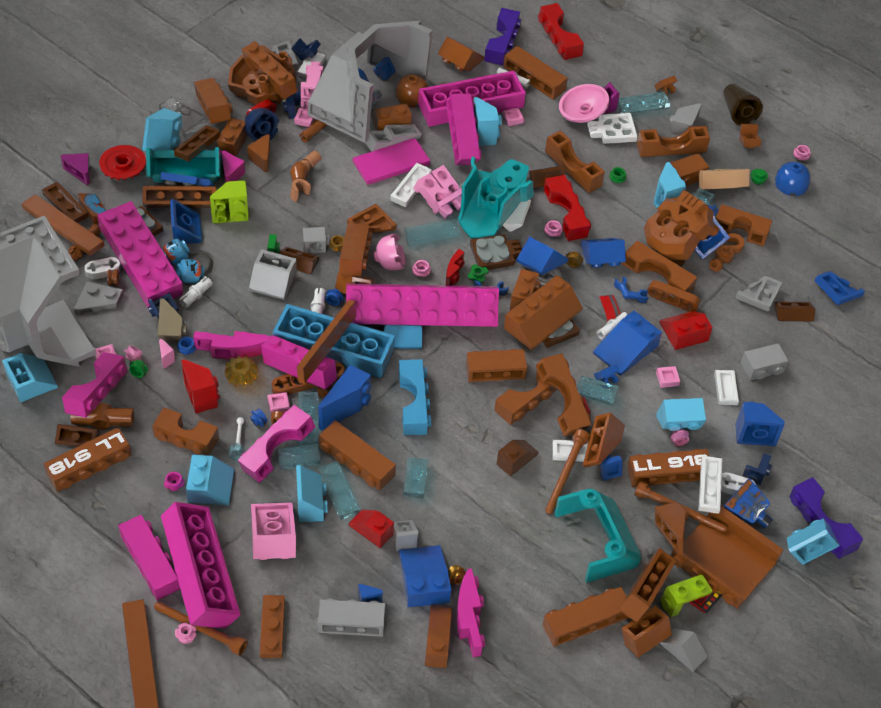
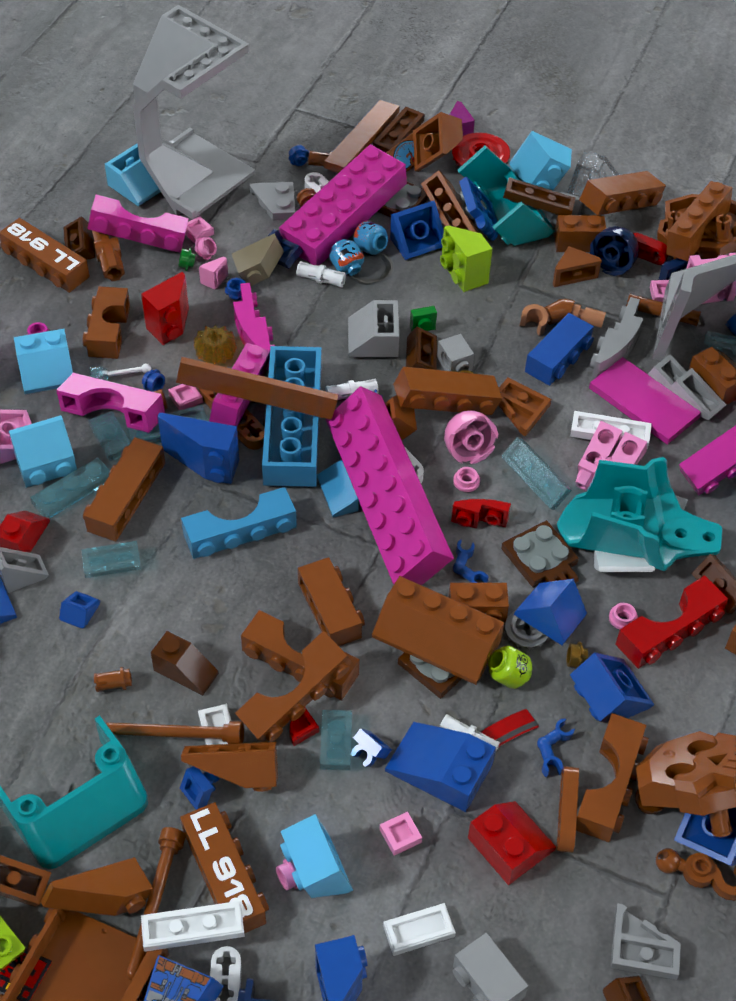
camera: 75 degrees right, 0 degrees up
(102, 182) = (436, 139): none -> dark orange slope
(232, 166) = (527, 248): dark pink slope -> none
(333, 185) = (559, 349): none -> blue brick
(341, 154) = (618, 341): none -> light grey slope
(448, 507) = (78, 609): none -> blue slope
(477, 277) = (488, 550): green plate -> none
(516, 492) = (113, 680): none -> dark orange pin
(581, 285) = (510, 667): none -> lime head

